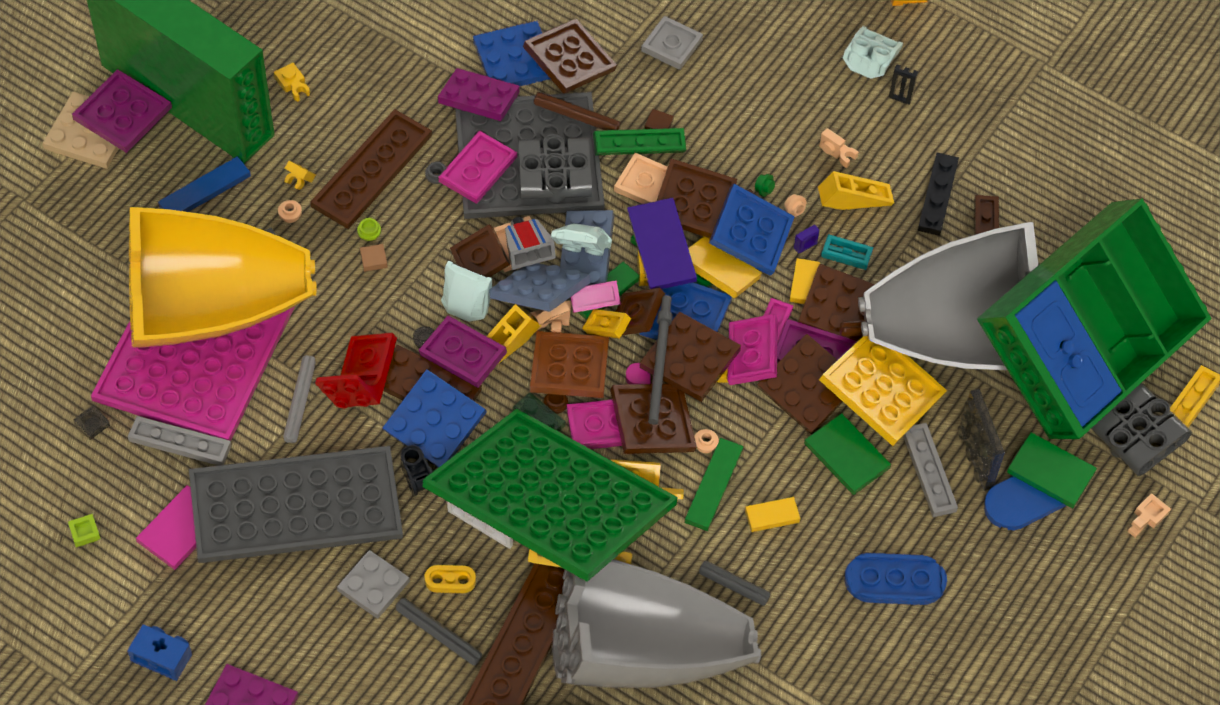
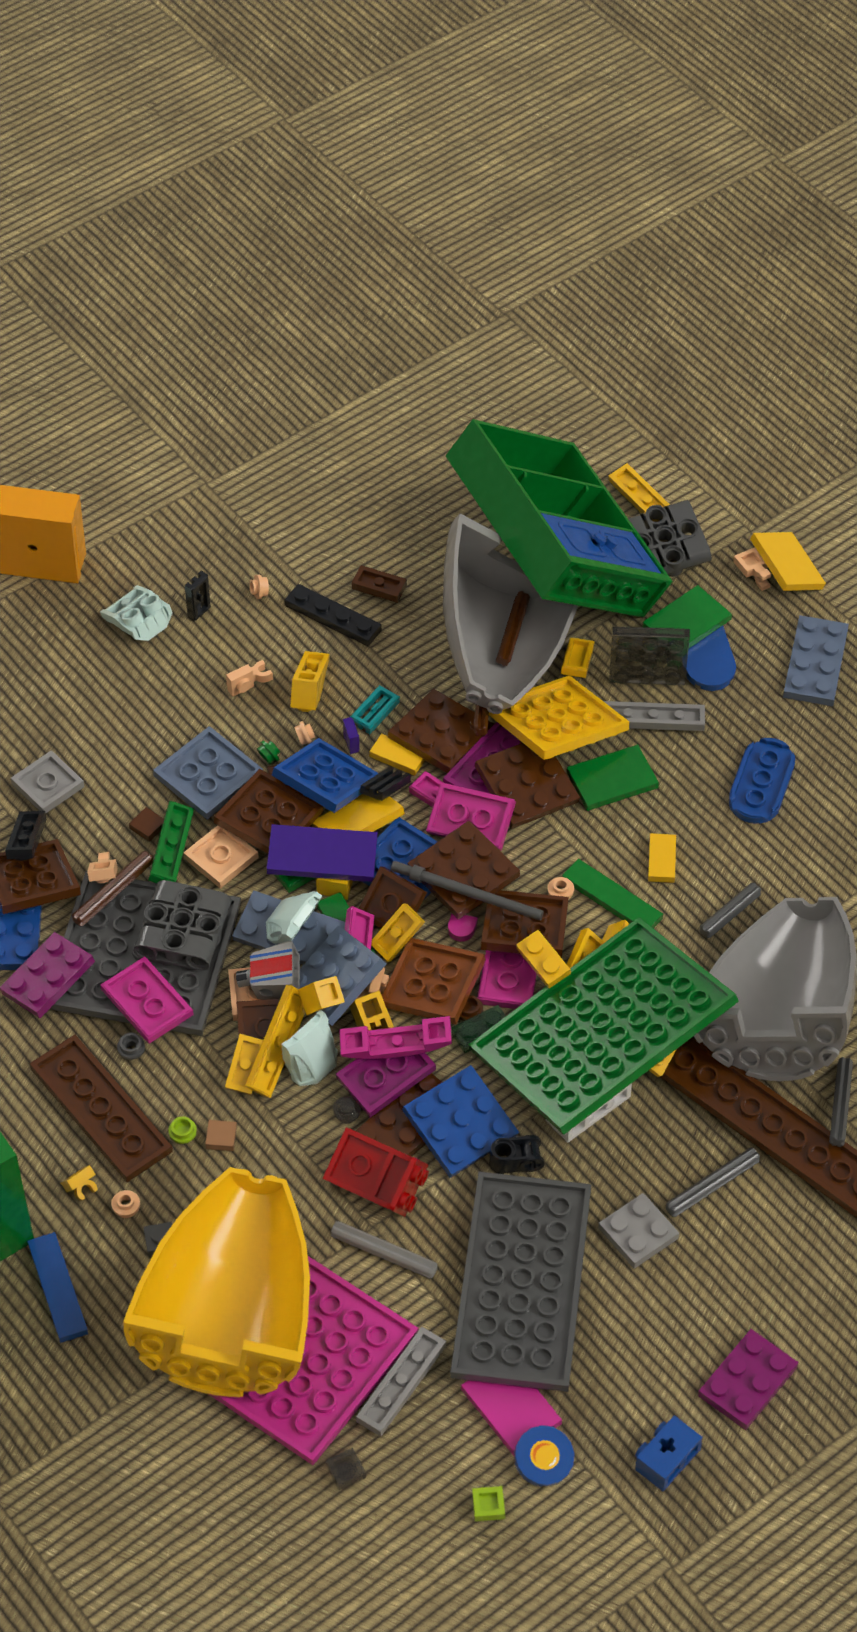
camera: 70 degrees left, 5 degrees down
(135, 560) = (544, 1456): none -> blue tile
(439, 252) = (242, 1063): none -> yellow plate
(450, 579) = (655, 1157): yellow plate -> none
(480, 262) = (282, 1027): none -> yellow tile
(484, 341) = (397, 1041): none -> dark pink slope
(504, 274) = (321, 995): none -> yellow panel
(591, 100) = (103, 870): none -> light nougat plate
(607, 40) = (25, 835): none -> black plate
(609, 435) = (543, 959): none -> yellow plate
(727, 146) = (206, 772): none -> sand blue plate
(762, 276) = (385, 784): none -> black tile
(941, 129) = (259, 586): none -> light nougat plate
(957, 330) = (512, 628): none -> reddish brown axle
(959, 390) = (577, 657): none -> yellow tile
(1059, 595) = (816, 660): none -> sand blue plate
(1166, 541) = (787, 561): none -> yellow tile

